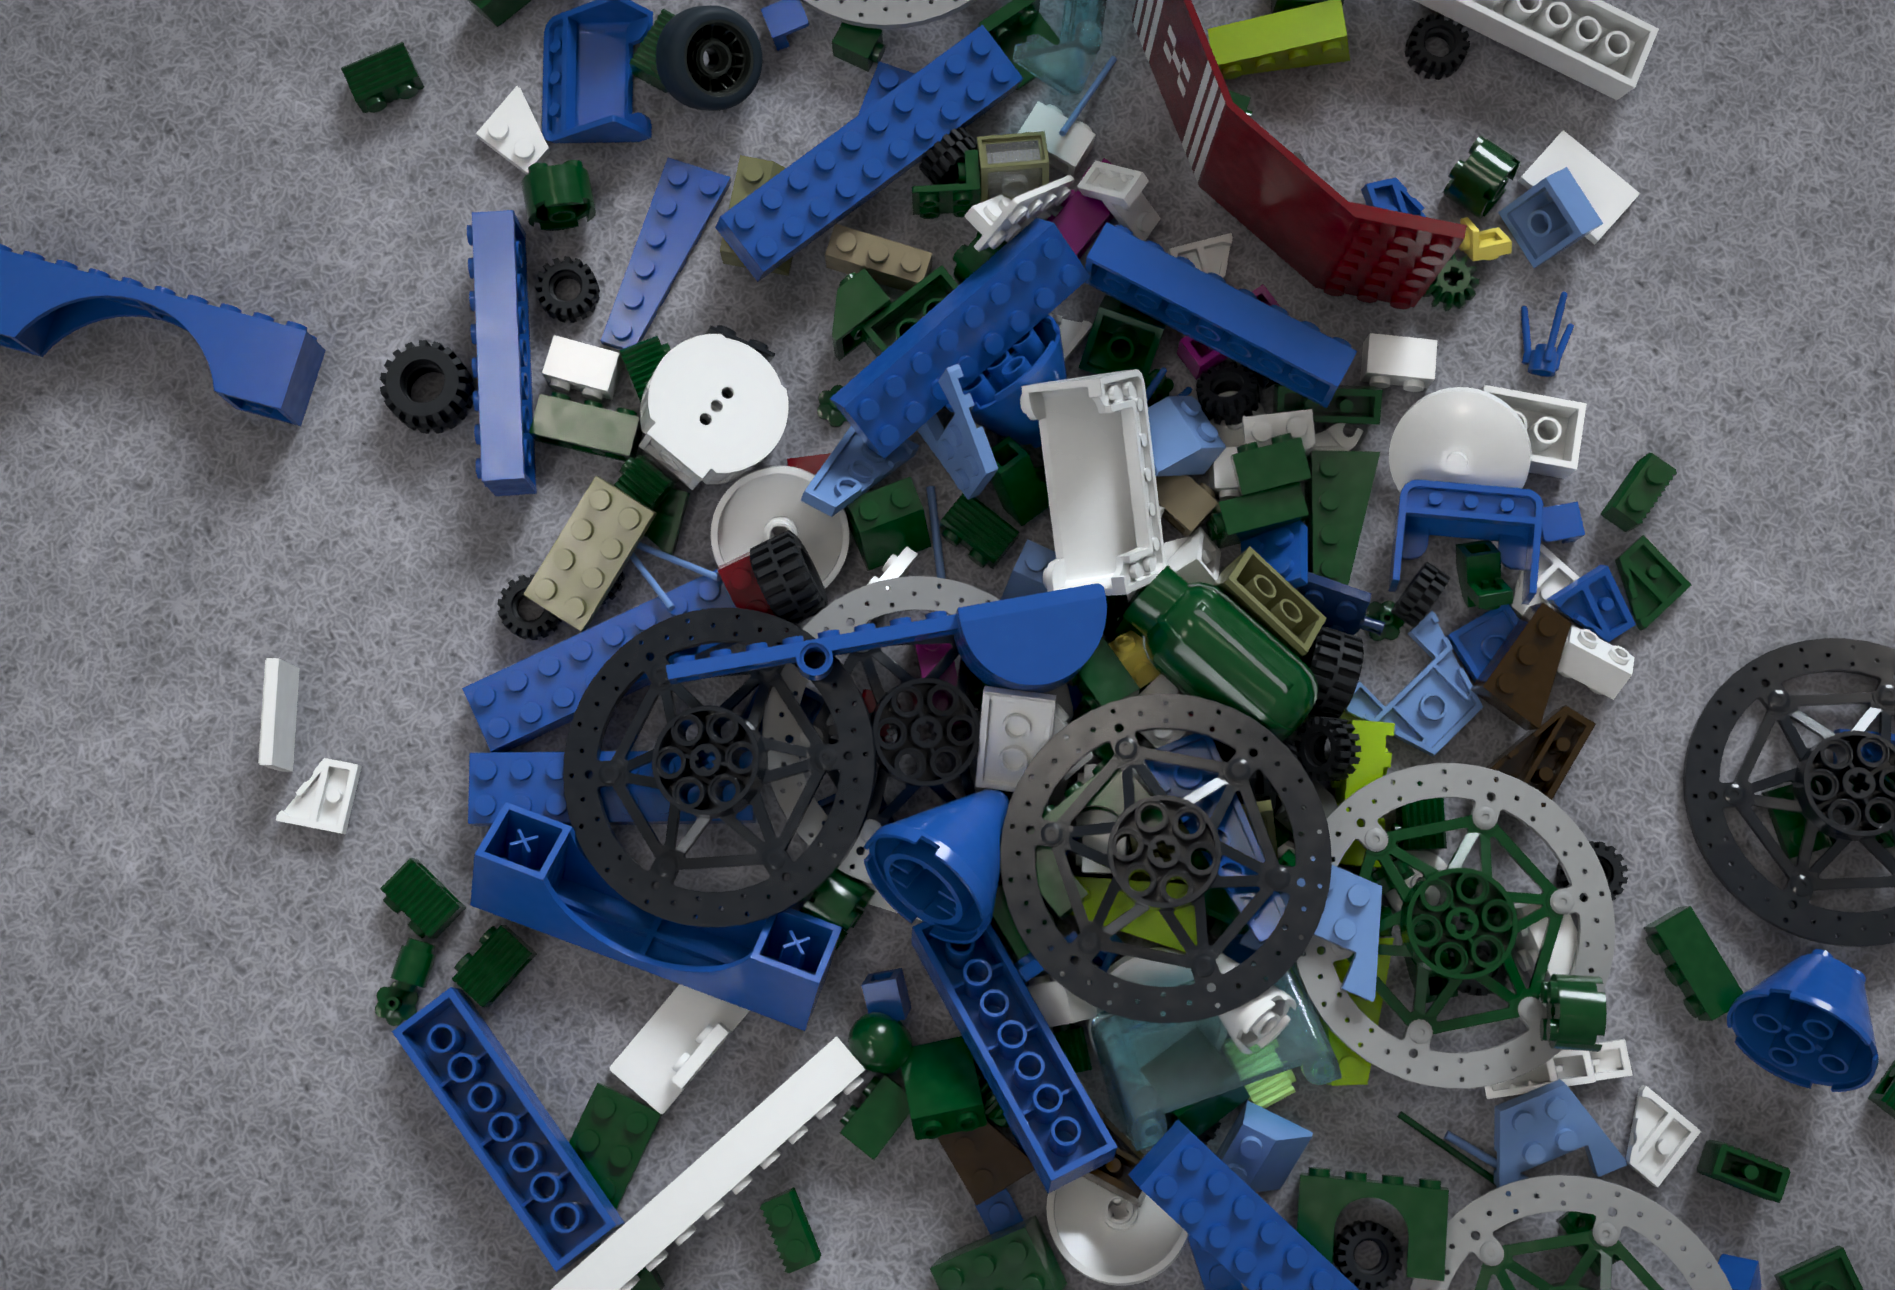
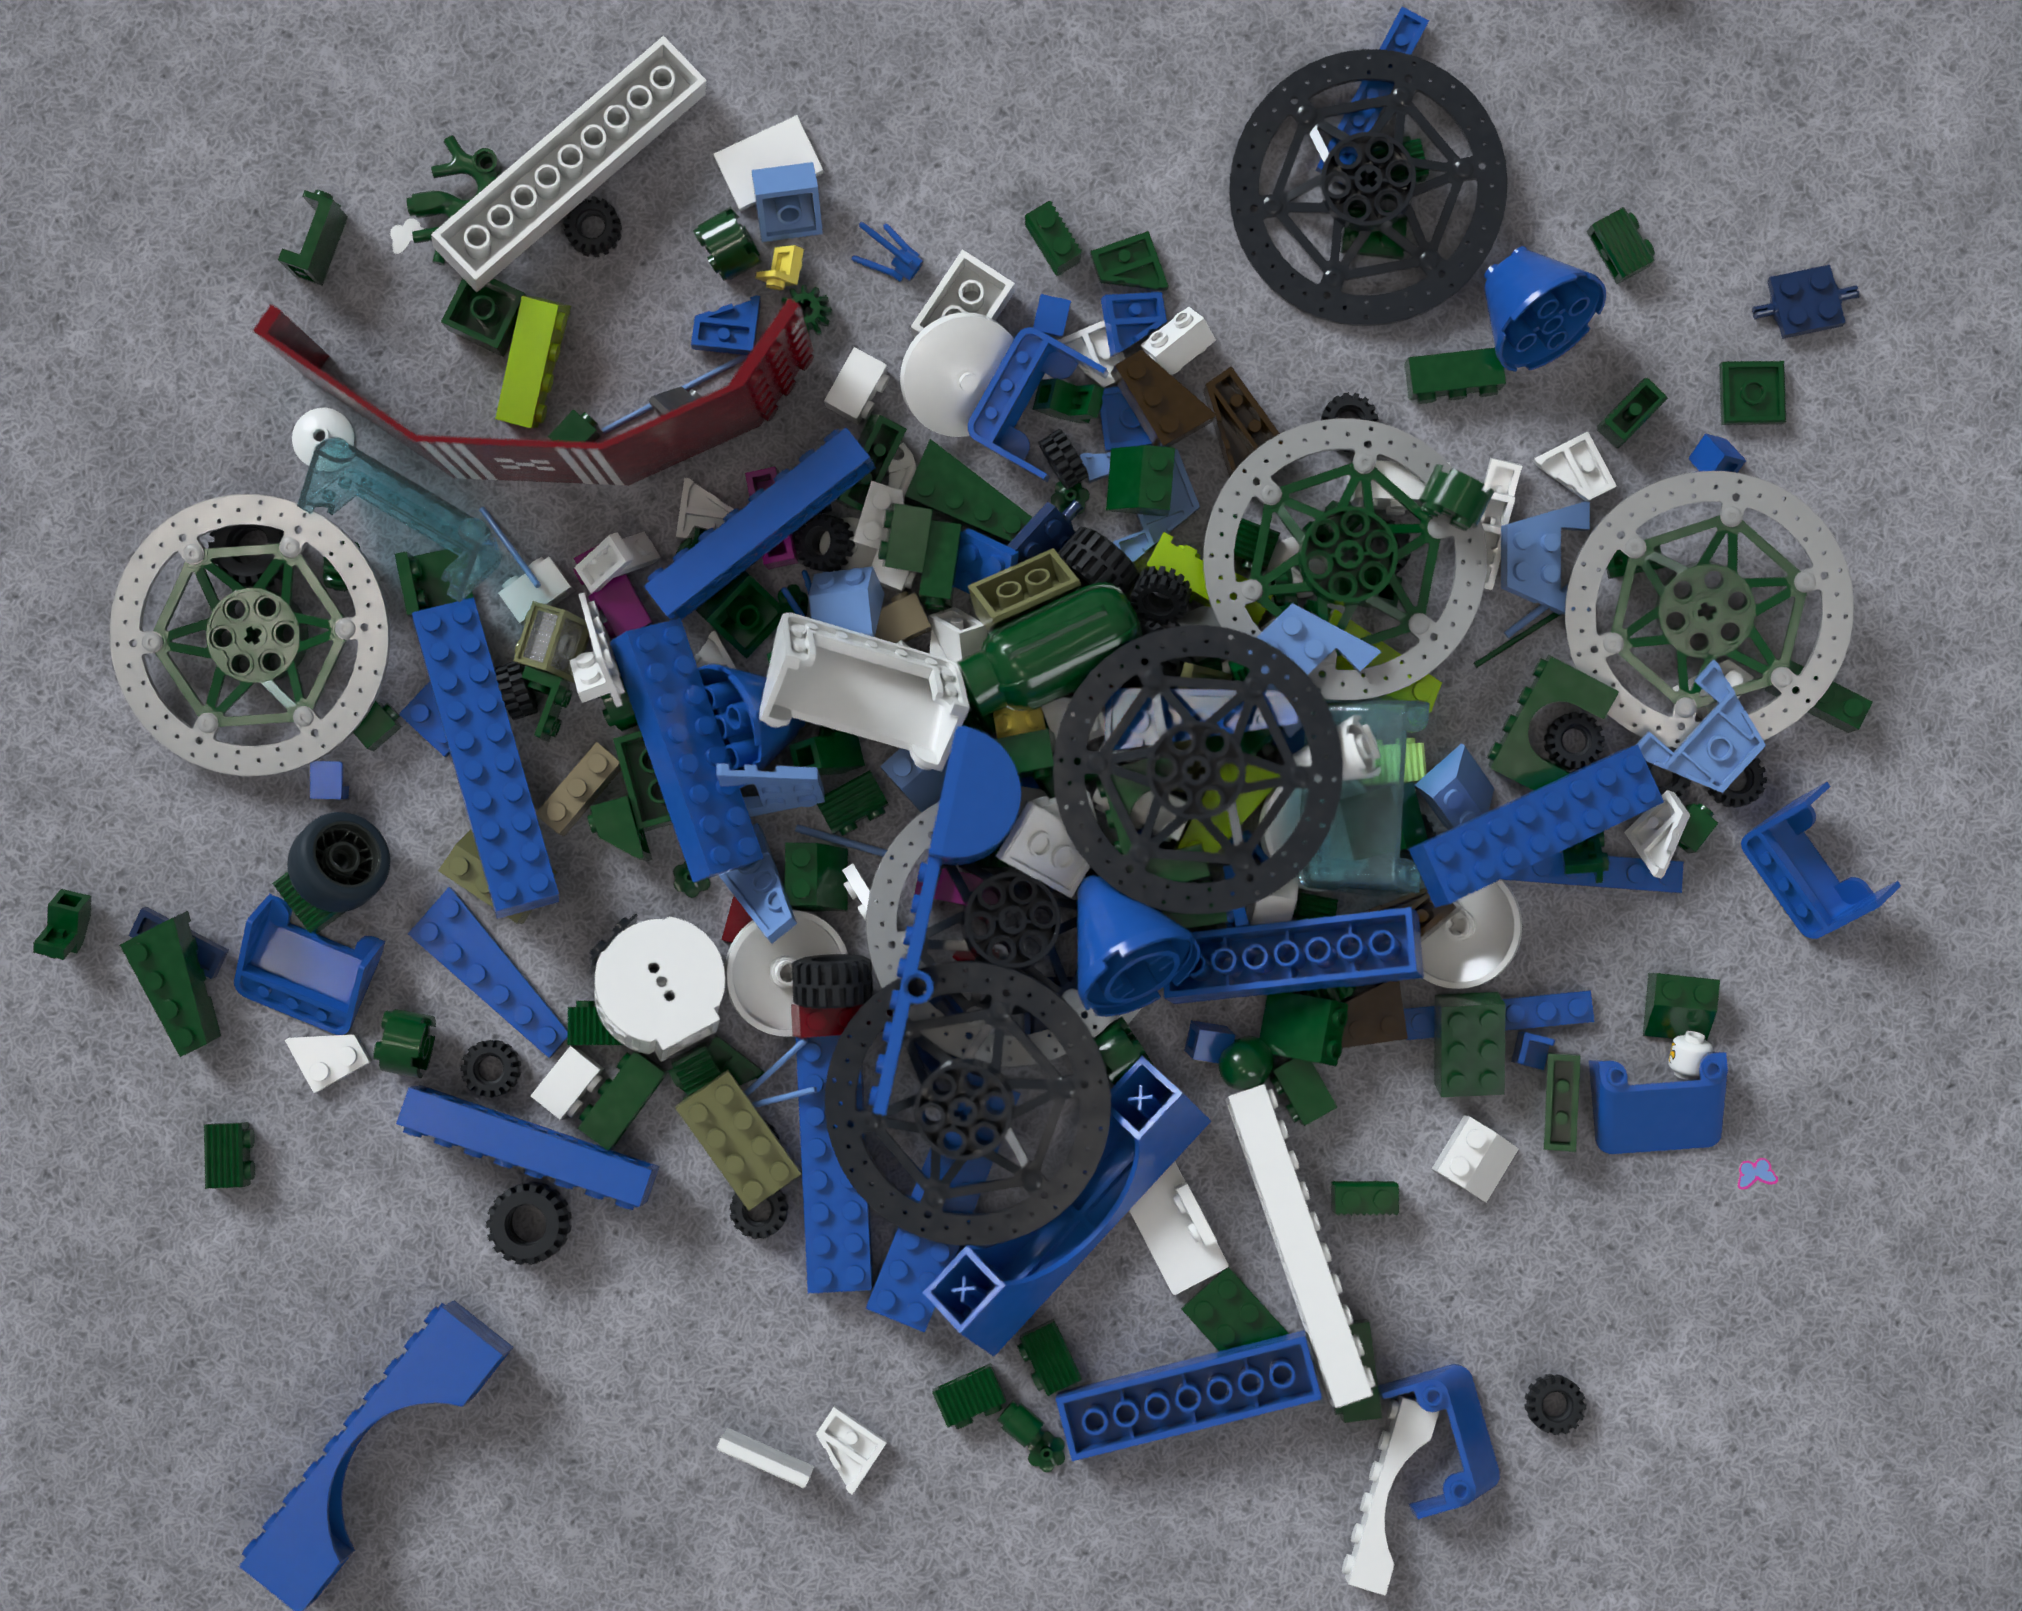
camera: 65 degrees left, 5 degrees up
(1435, 681) = (1140, 480): none -> dark green slope

